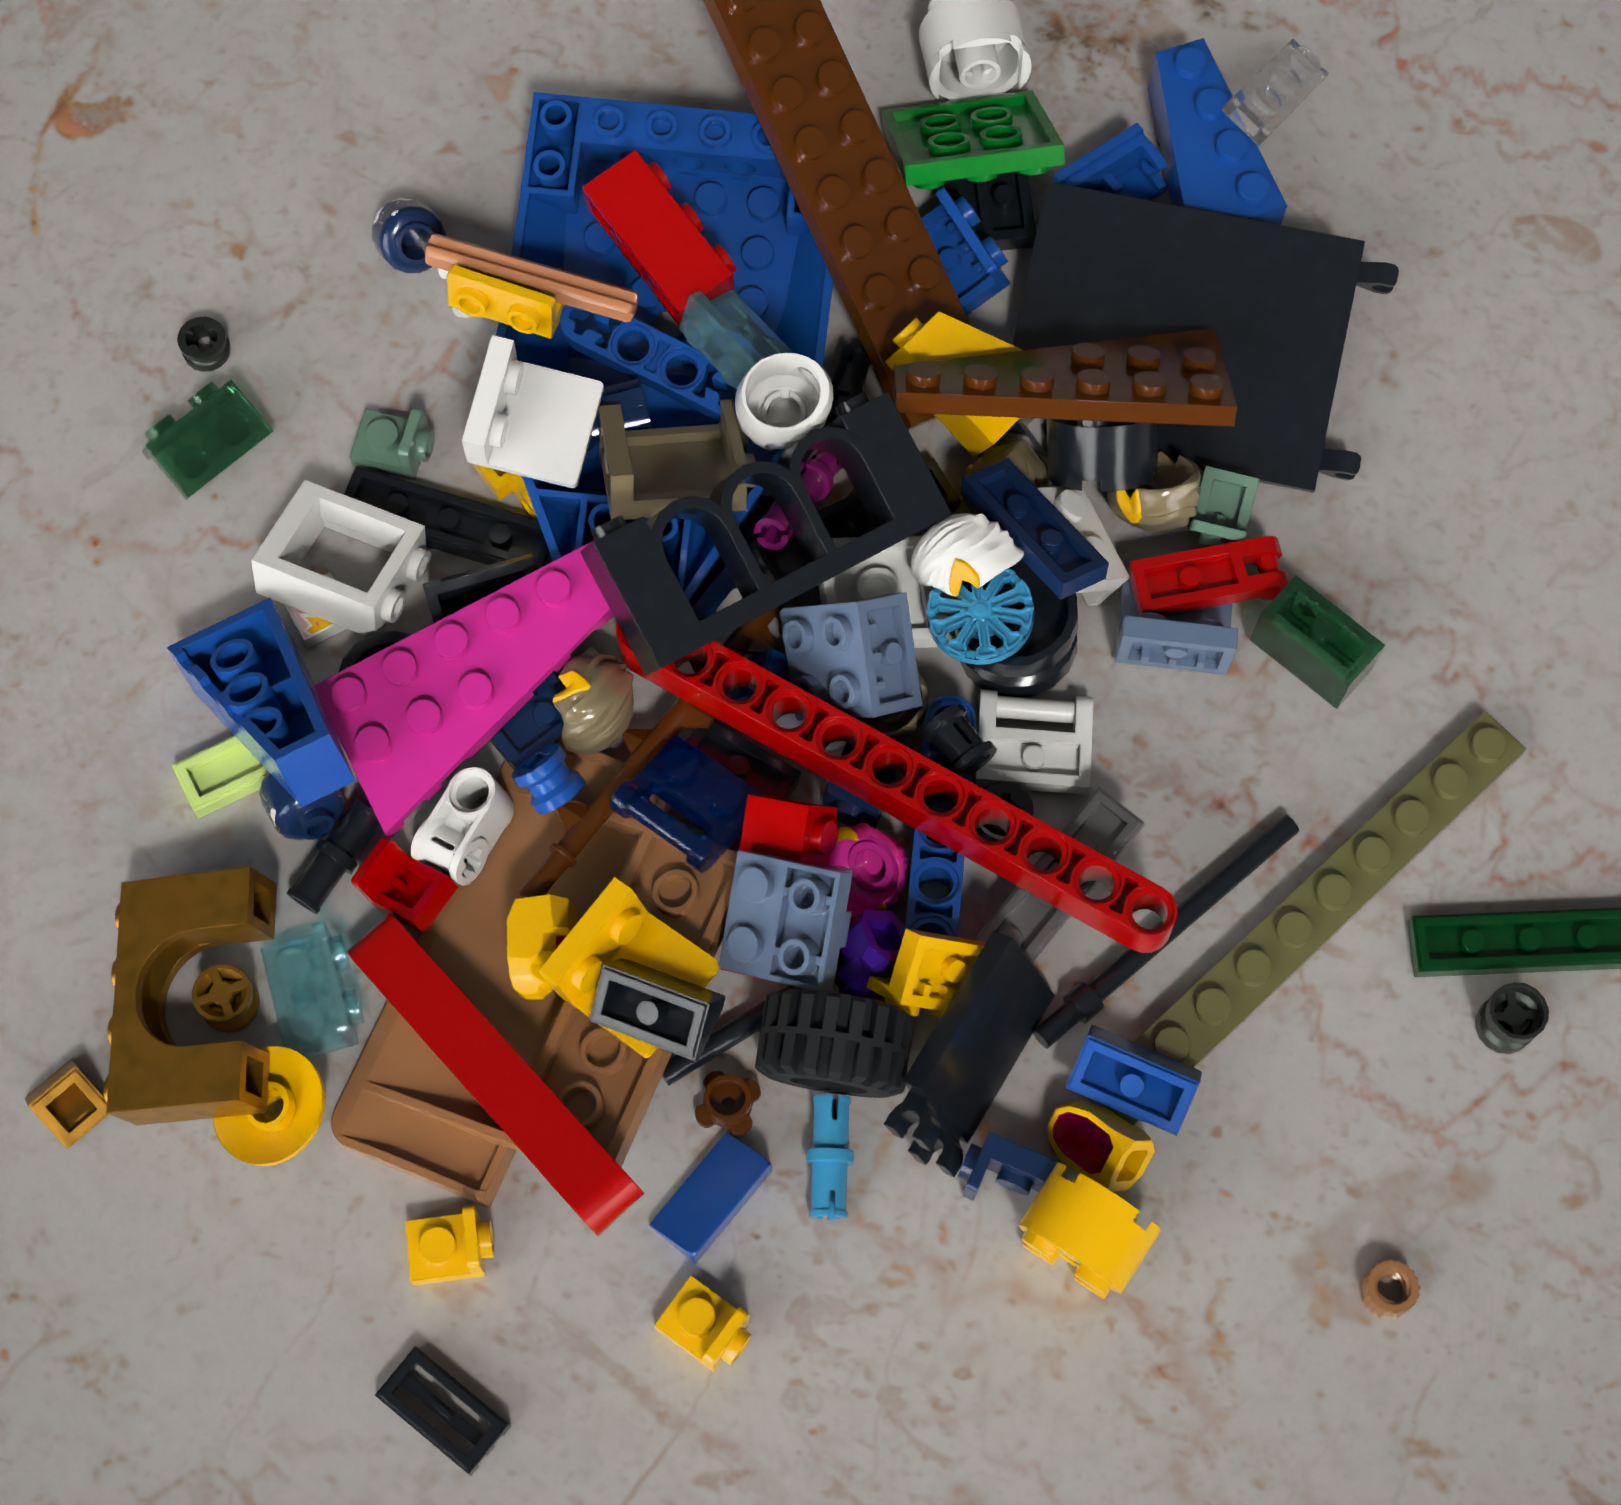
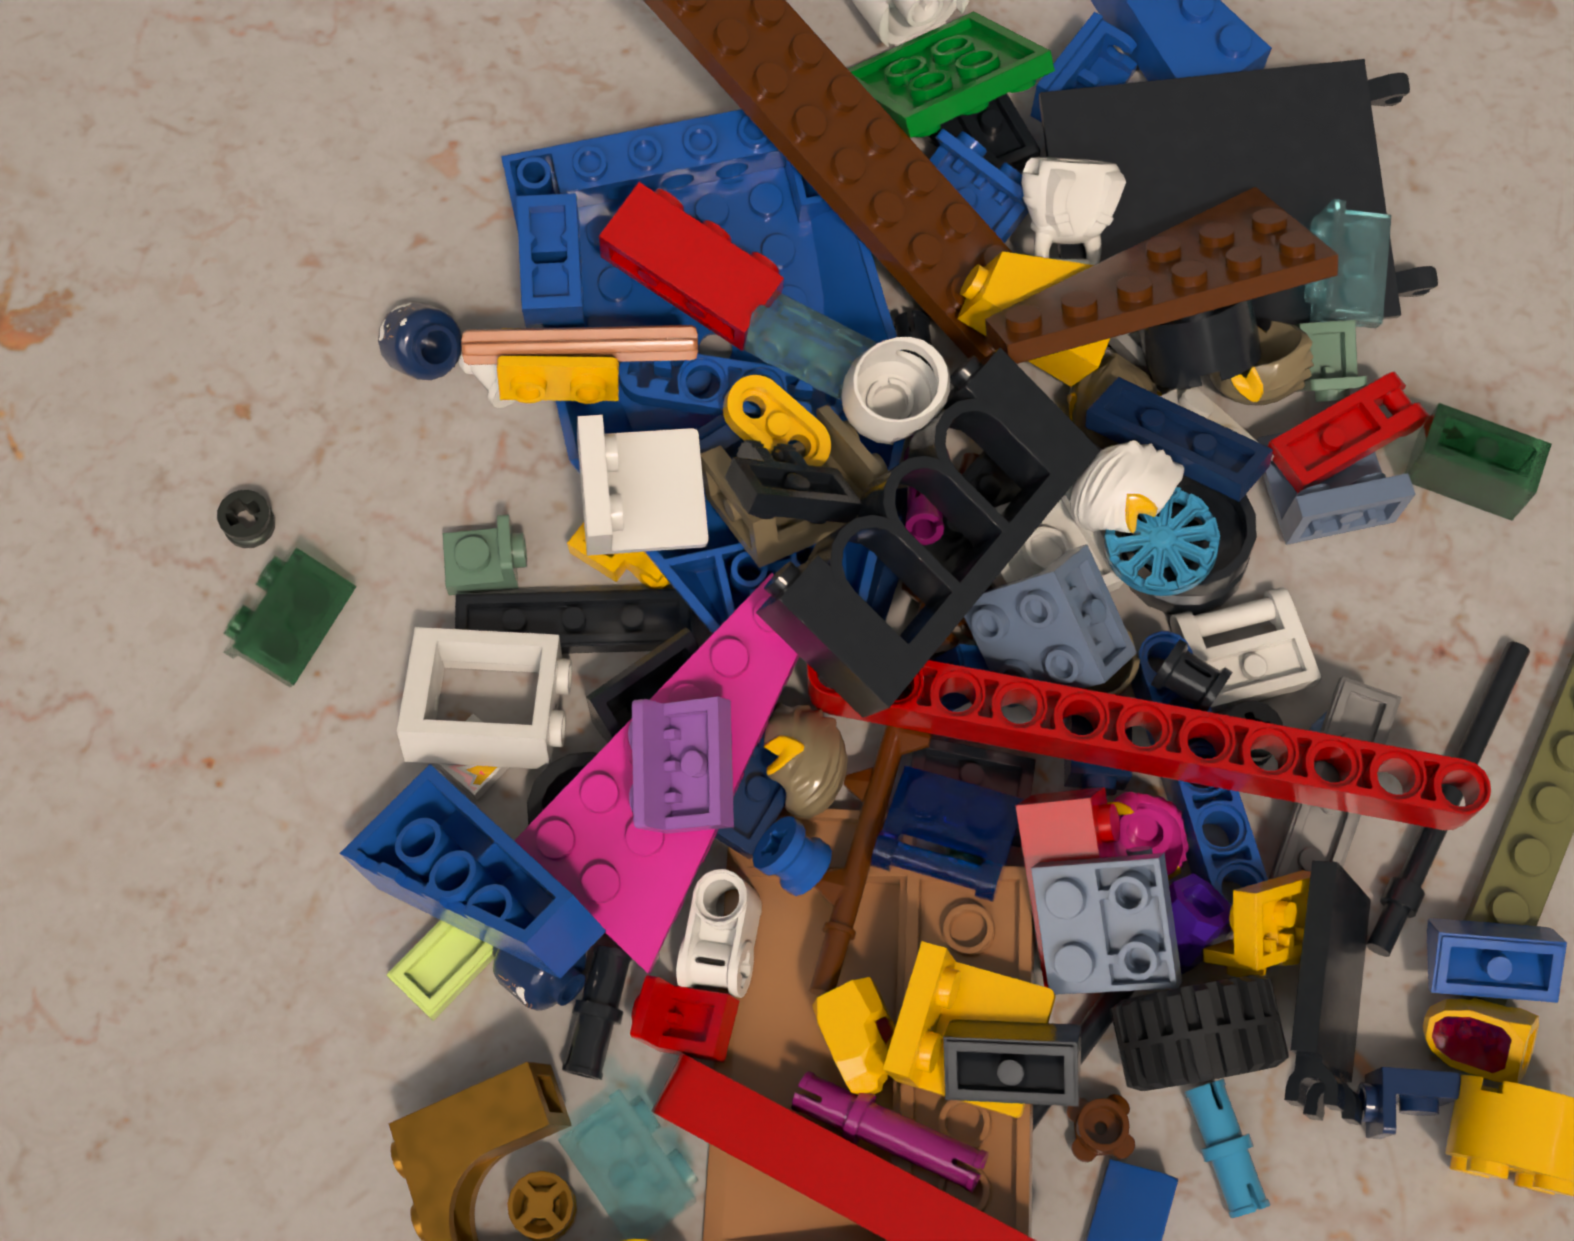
camera: 20 degrees left, 0 degrees up
(470, 662) = (681, 765): none -> medium lavender bracket
(517, 1016) = (886, 1129): none -> magenta pin
(533, 197) = (550, 261): none -> blue brick
(655, 456) = (789, 487): none -> black hinge
(679, 404) = (780, 418): none -> yellow plate
(1030, 289) = (1071, 202): none -> white piece
(1277, 429) = (1362, 252): none -> clear light blue bracket

